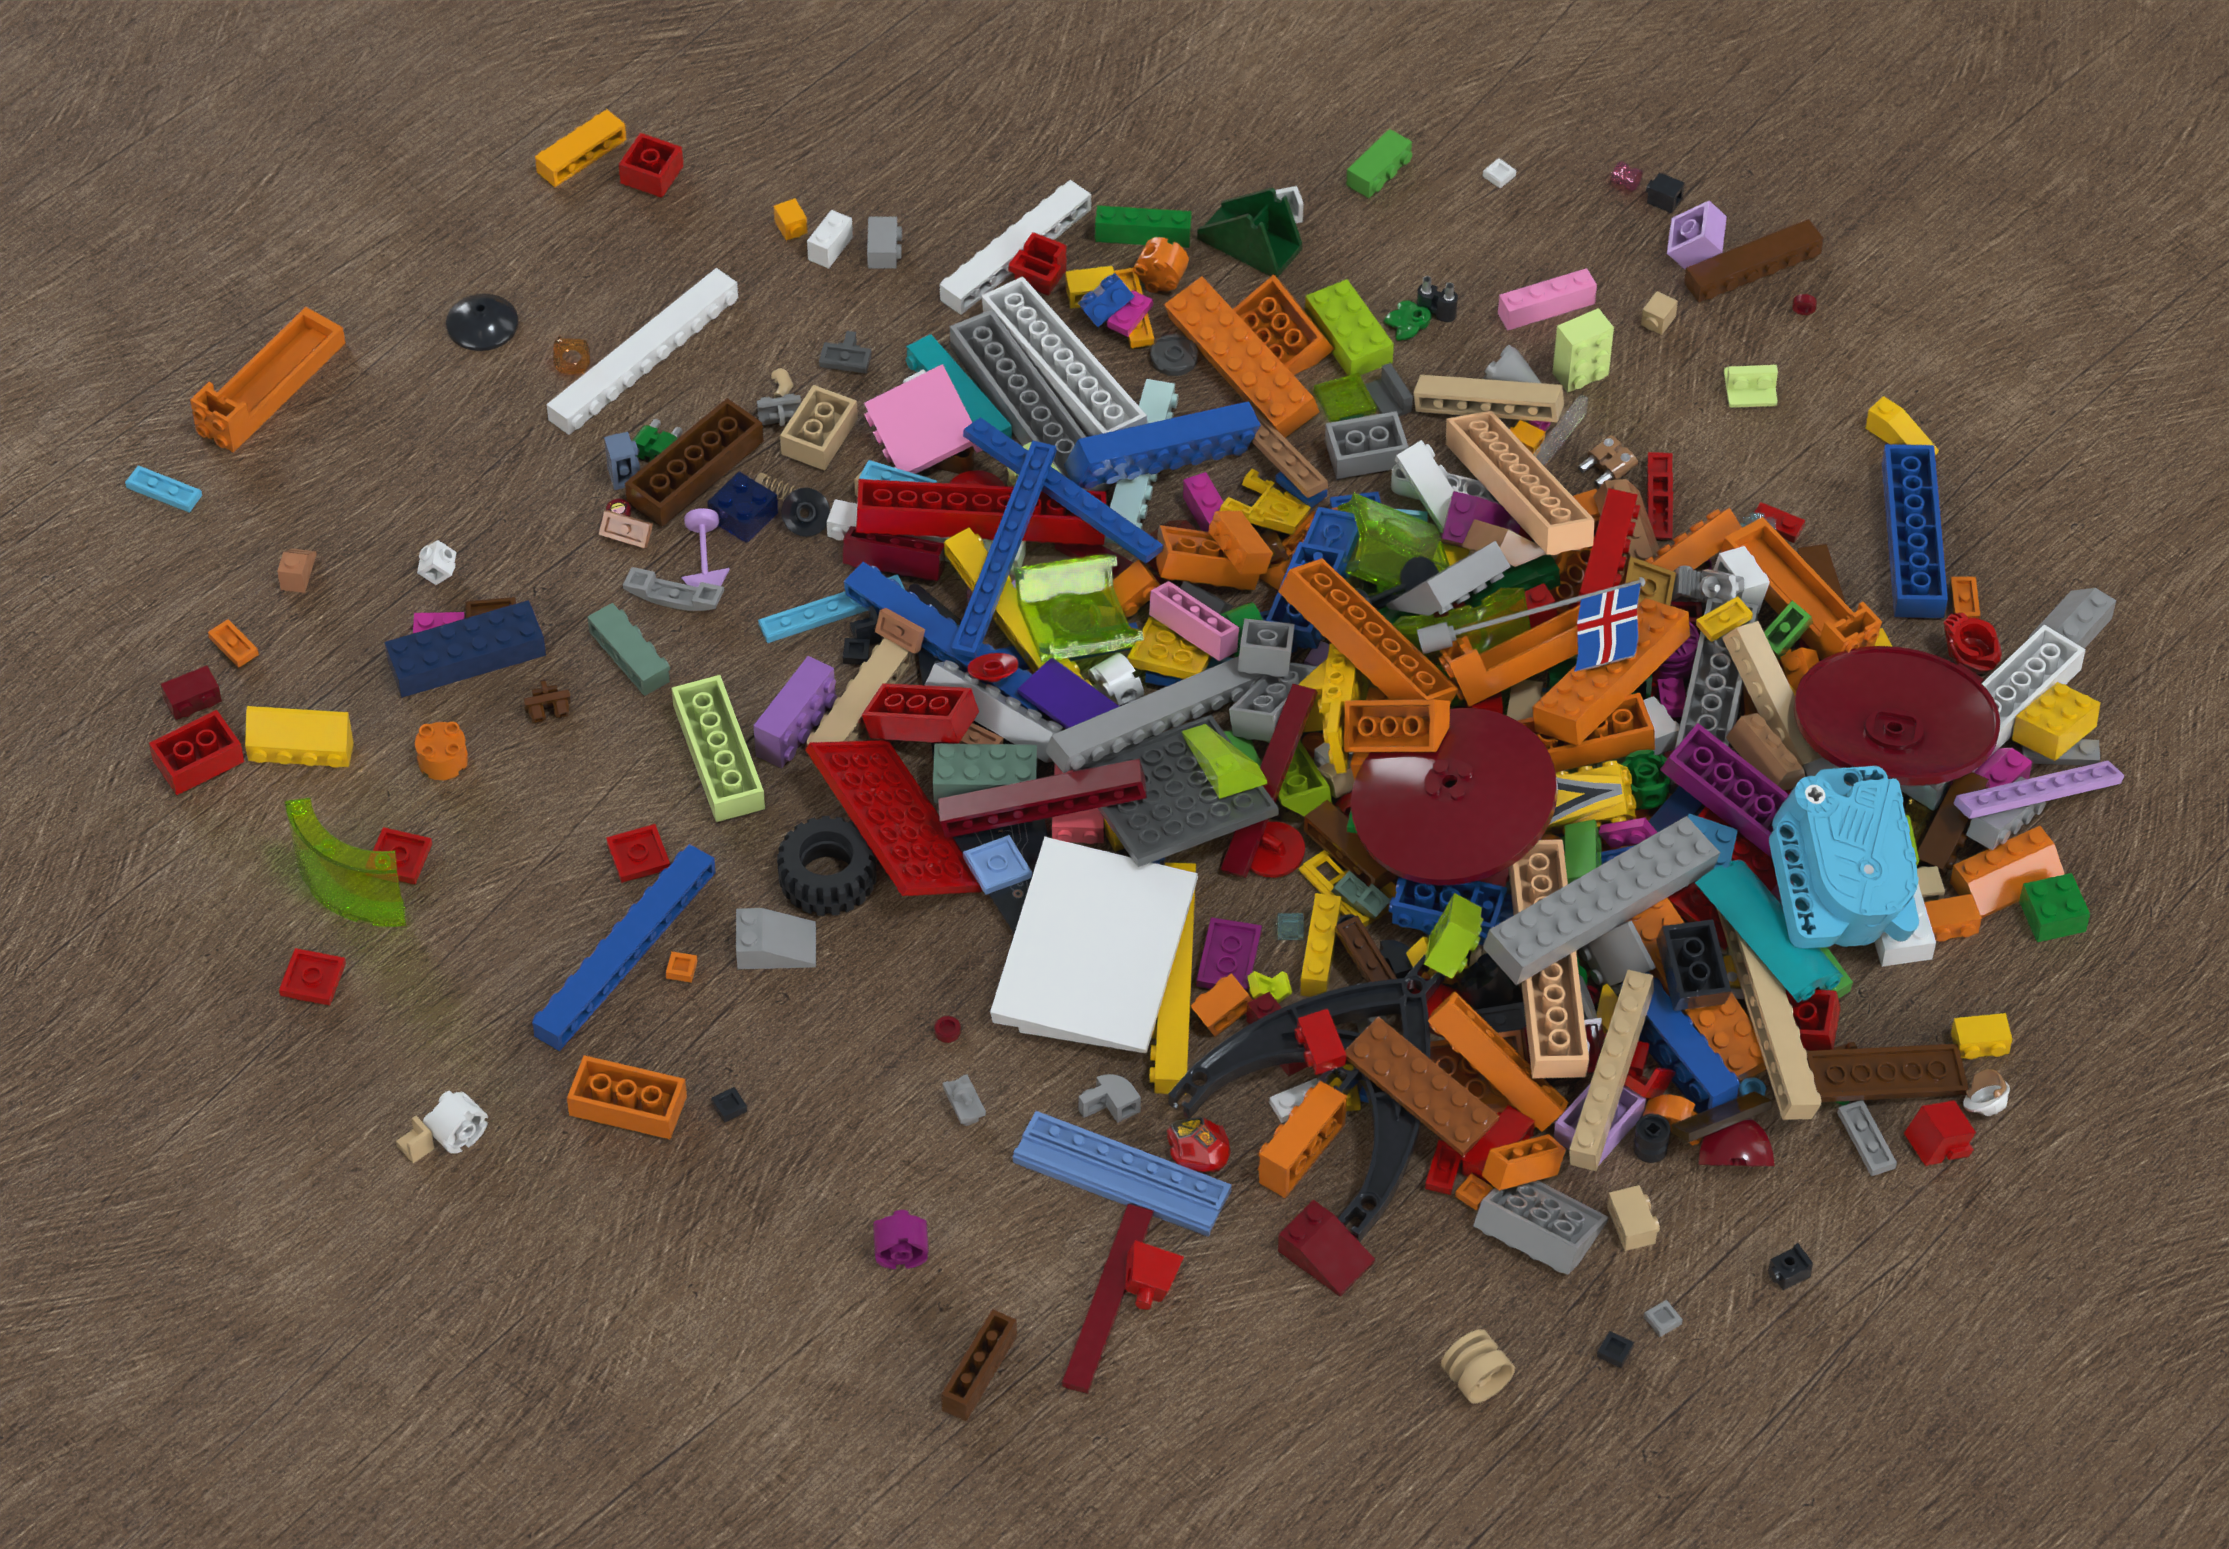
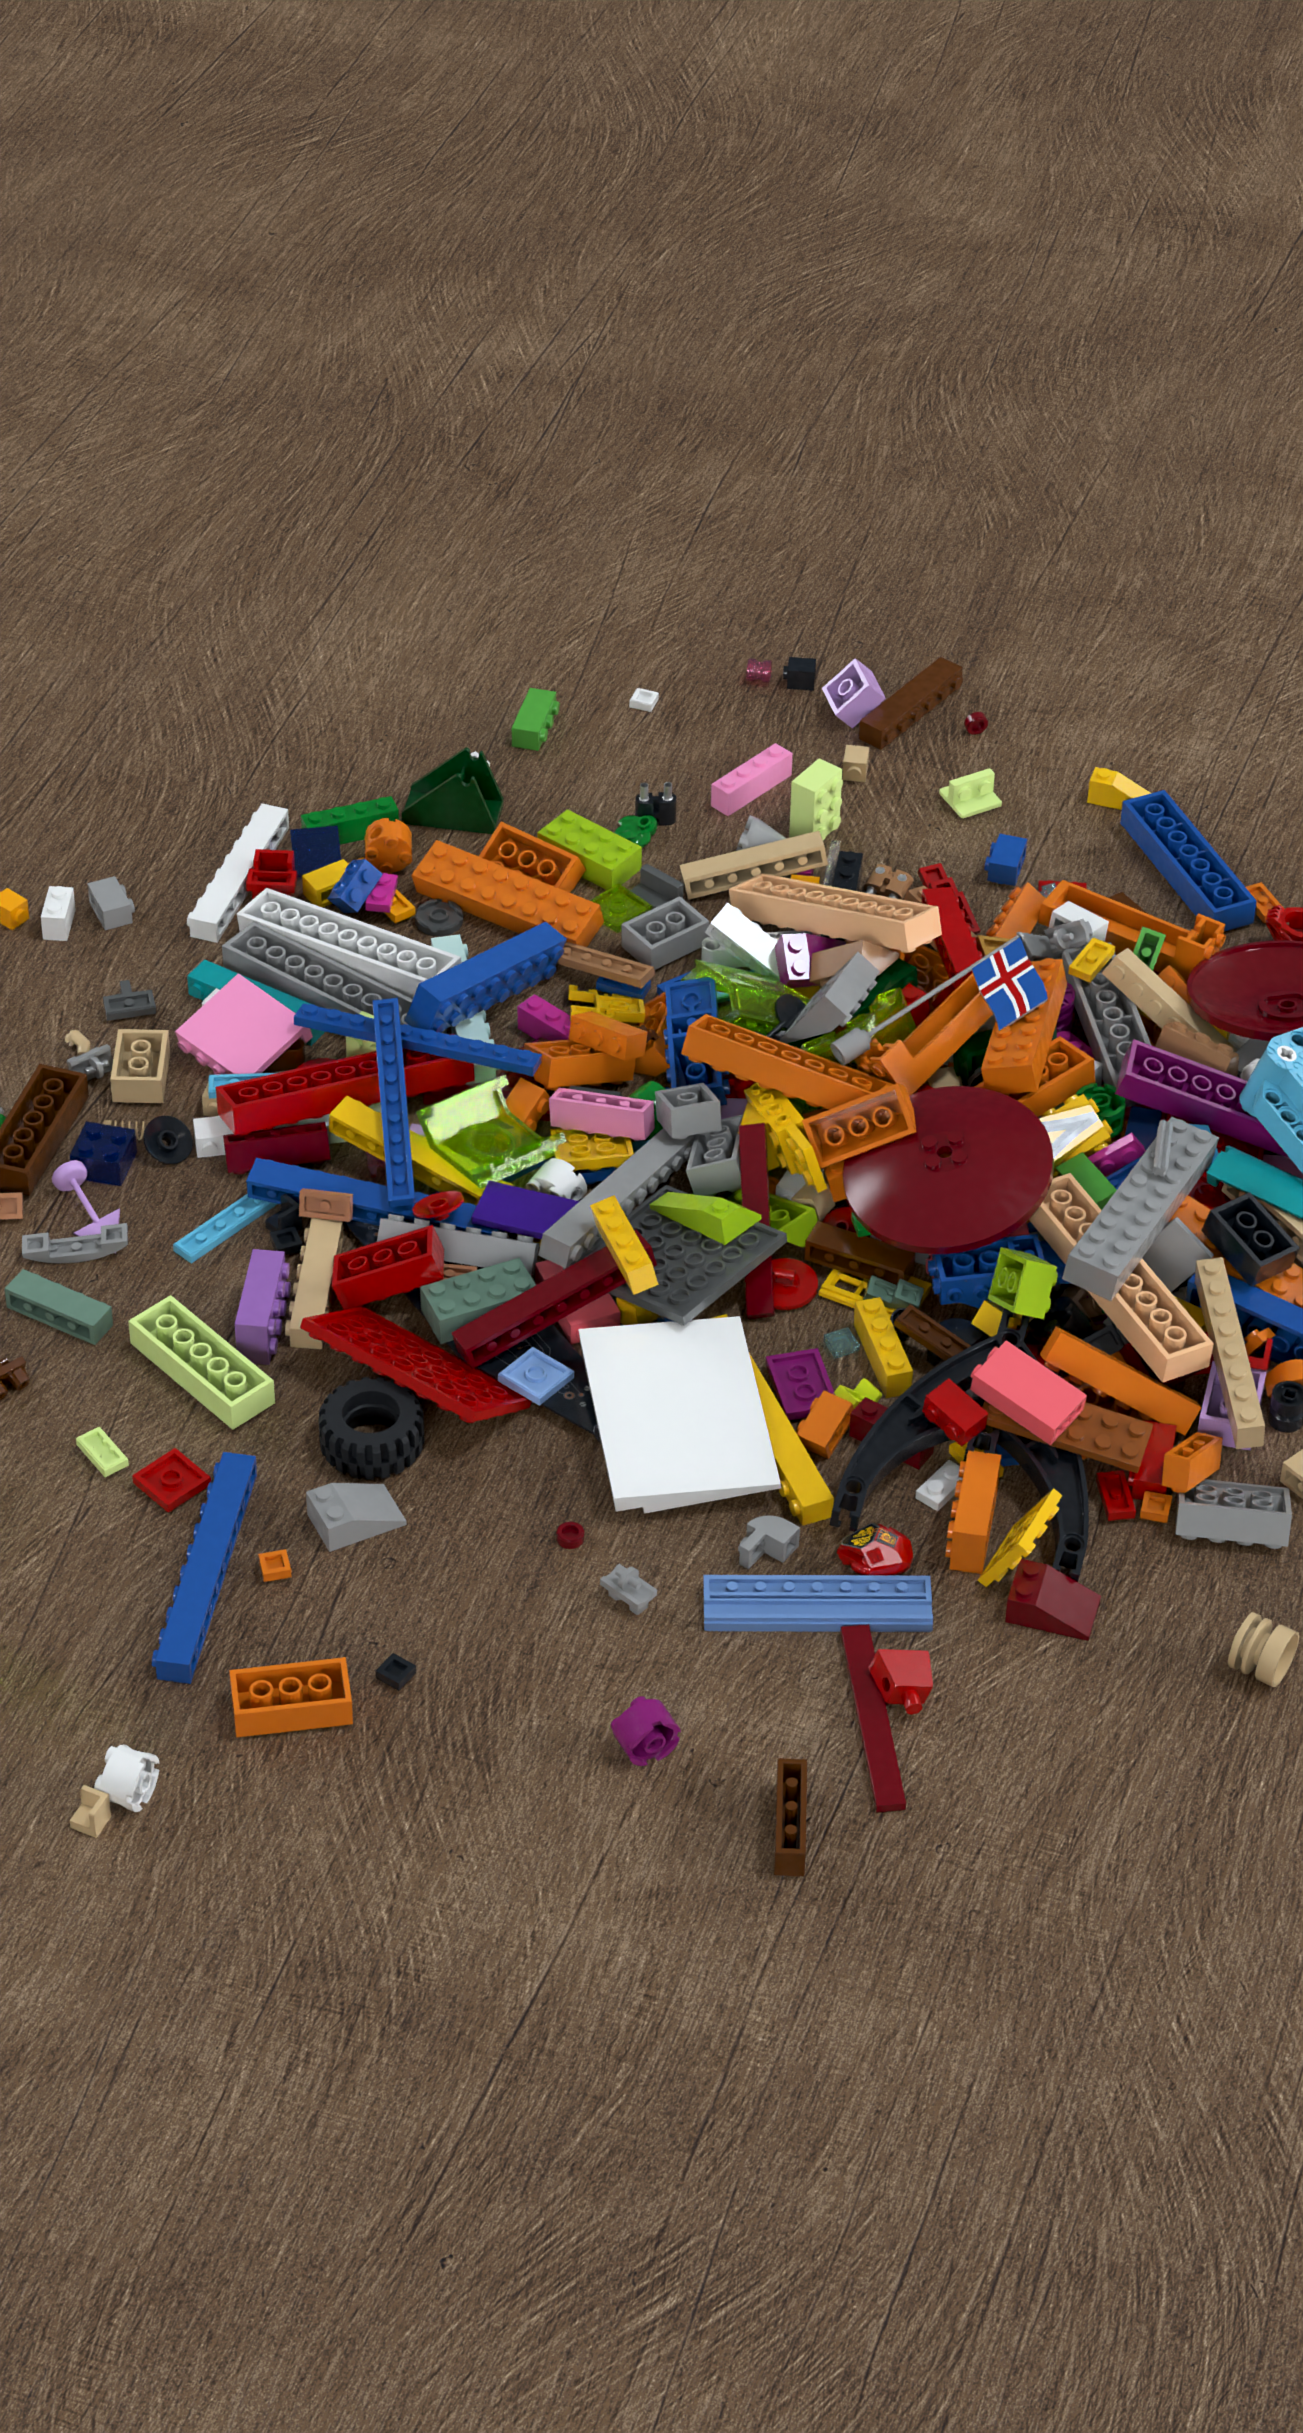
camera: 25 degrees left, 10 degrees down
(594, 804) = (102, 1451): none -> yellowish green plate
(1094, 246) = (314, 848): none -> clear blue tile
(1113, 773) = (624, 1245): none -> yellow brick
(1326, 1180) = (1020, 1538): none -> yellow plate
(1391, 1047) = (1027, 1392): none -> coral brick
(1570, 445) = (848, 870): none -> black brick
(1648, 849) = (1162, 1148): none -> light grey axle
(1656, 1061) = (1257, 1340): none -> orange plate
(1739, 469) = (1006, 859): none -> blue brick

